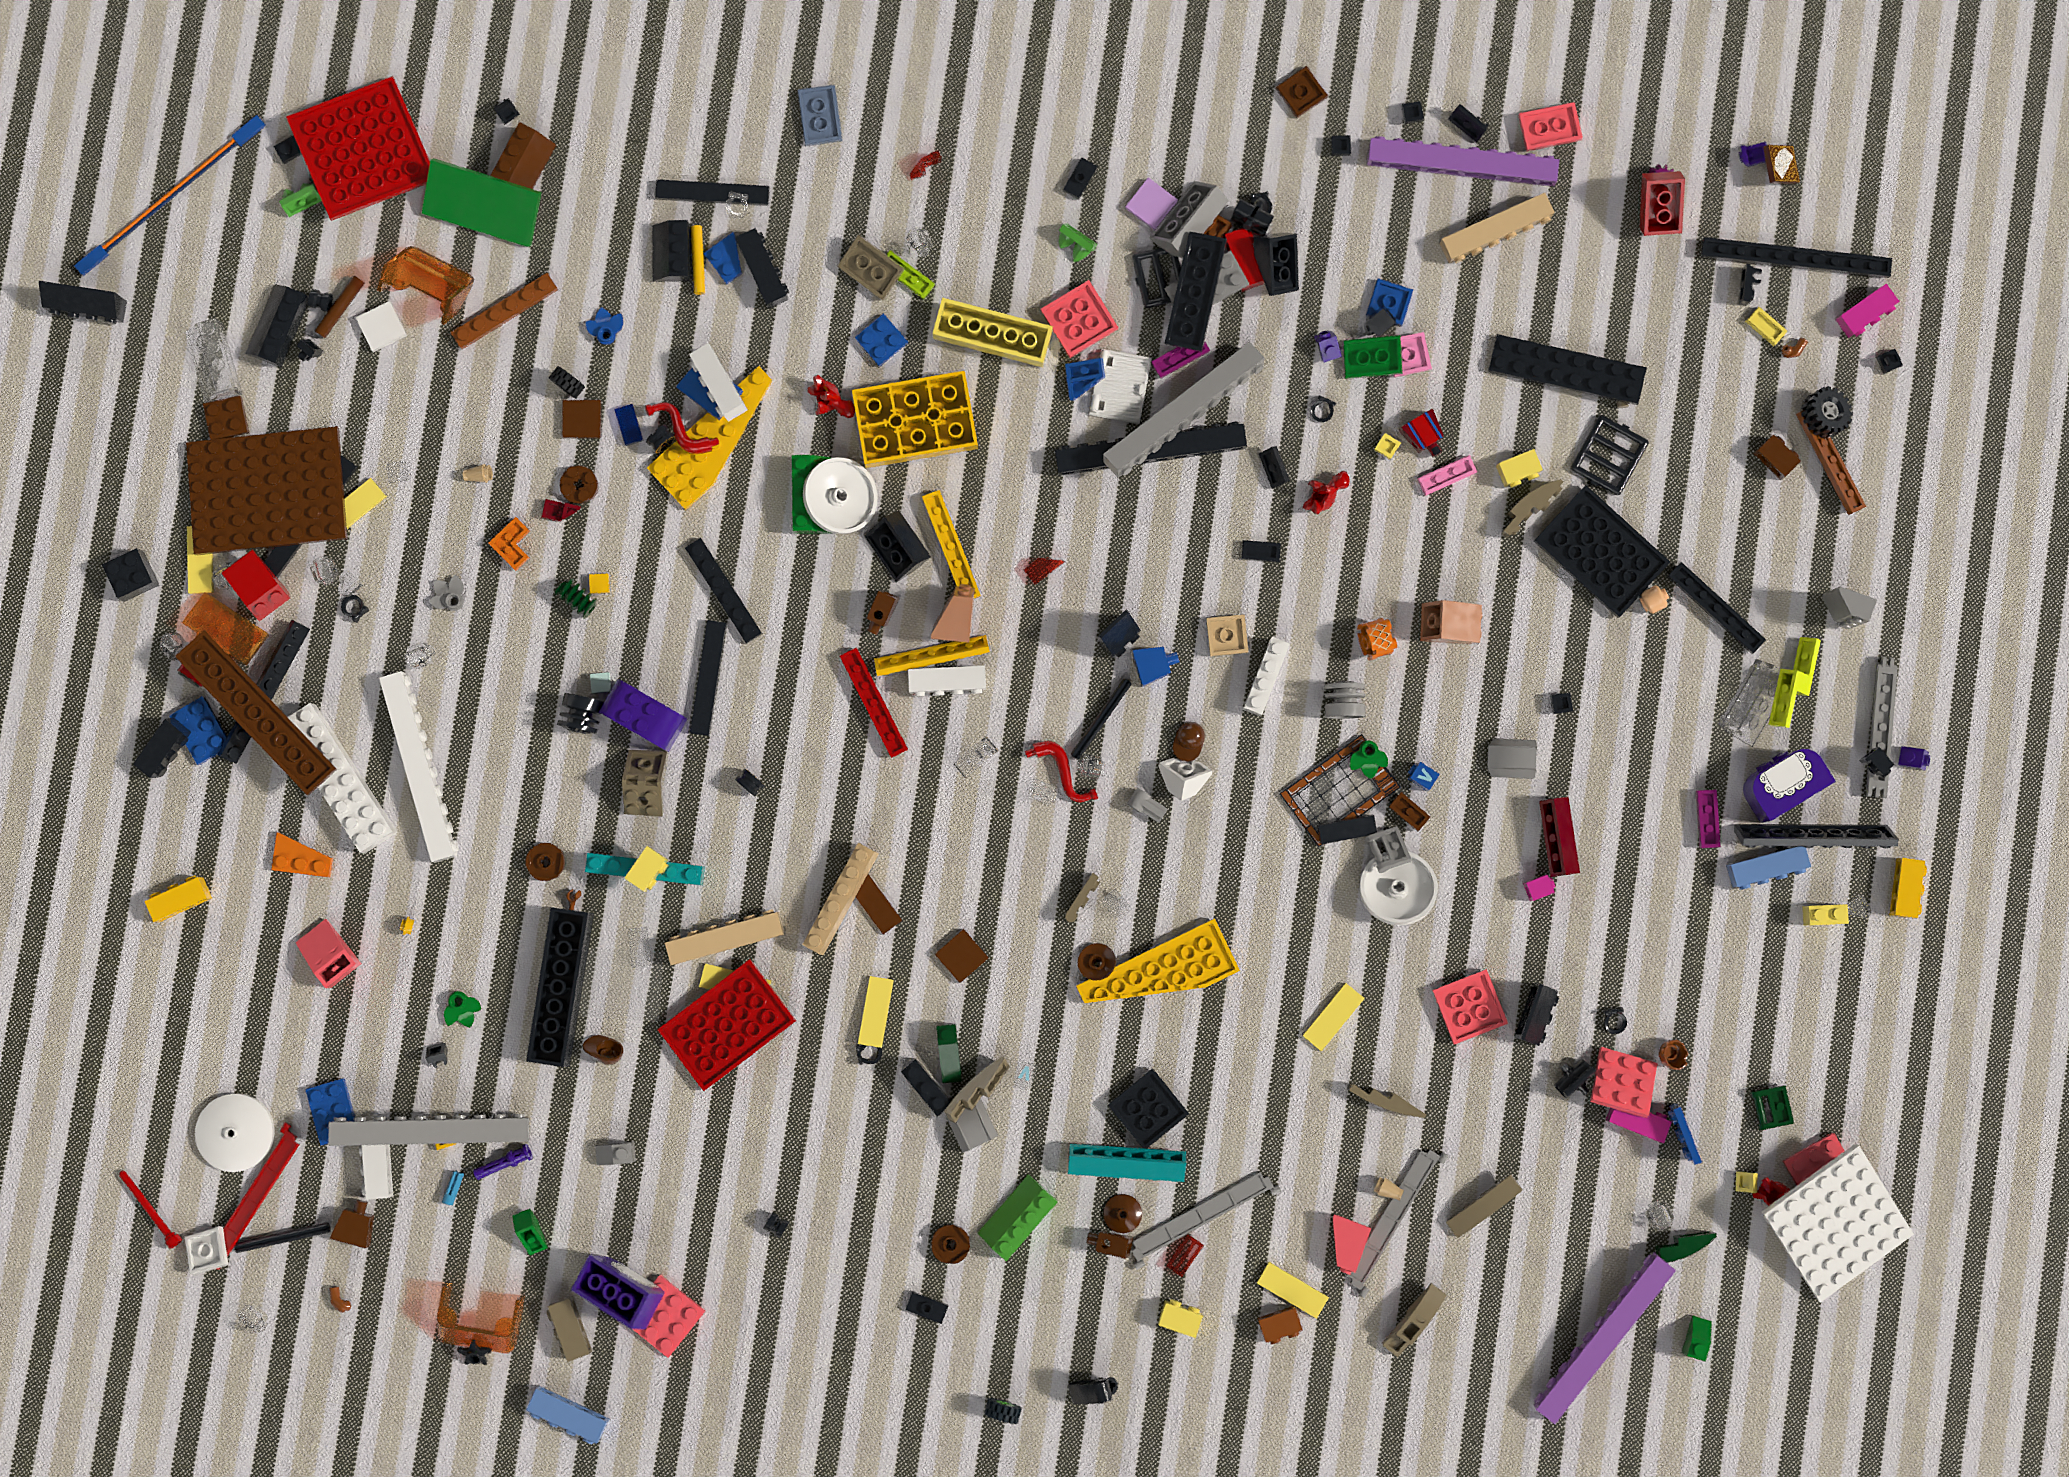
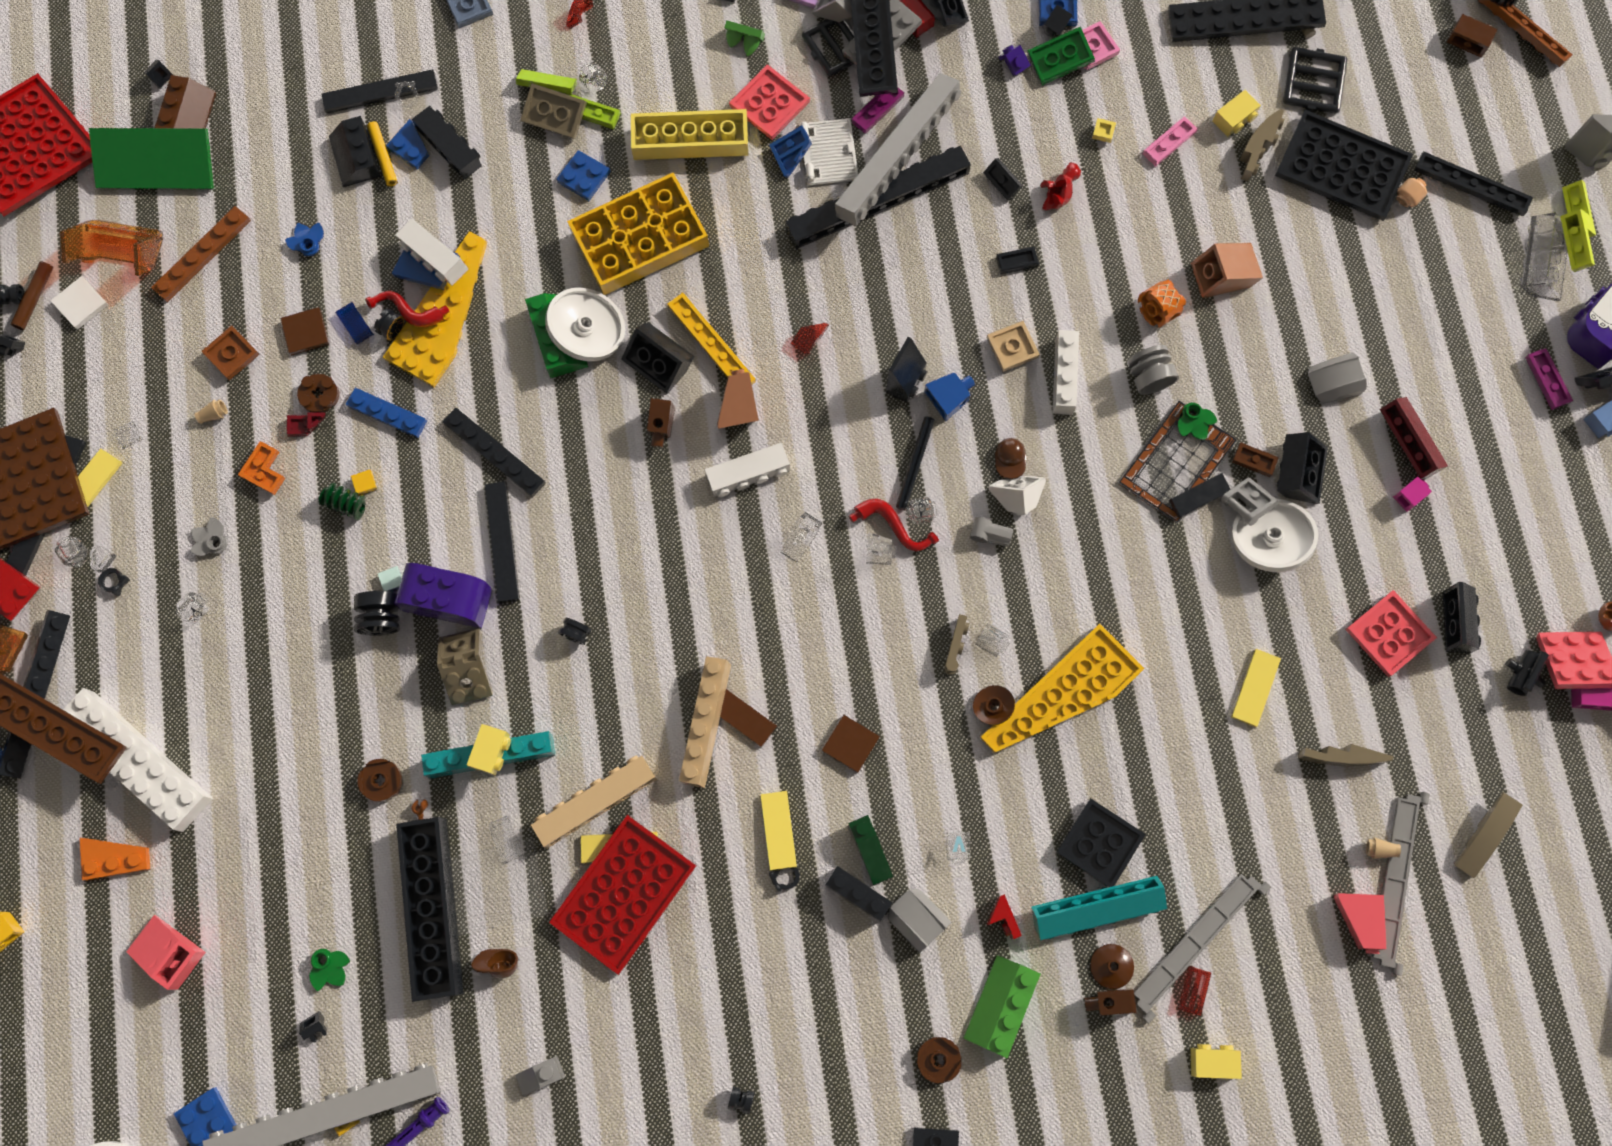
camera: 15 degrees left, 10 degrees down
(407, 925) = (245, 895): yellow plate -> none
(418, 766) = (219, 723): white brick -> none
(508, 420) = (230, 352): none -> dark orange plate
(566, 382) = (279, 297): black tyre -> none
(636, 522) = (386, 412): none -> blue plate
(829, 398) = (548, 240): red animal -> none
(873, 232) = (553, 82): none -> lime tile
(873, 702) = (679, 515): red plate -> none
(931, 655) = (727, 449): yellow plate -> none
(981, 1084) = (915, 873): dark tan slope -> none
(1044, 1140) = (1003, 911): none -> red slope
(1280, 1324) = (1325, 1034): dark orange brick -> none
(1292, 1290) = (1322, 992): light yellow piece -> none
(1323, 399) = (1025, 107): black piece -> none
(1415, 1321) = (1468, 982): dark tan slope -> none
(1422, 776) = (1255, 421): blue brick -> none
(1424, 433) = (1134, 108): torso -> none
(1449, 833) = (1302, 468): none -> black slope
(1561, 703) = (1362, 313): black plate -> none
(1619, 1010) = (1542, 592): black piece -> none

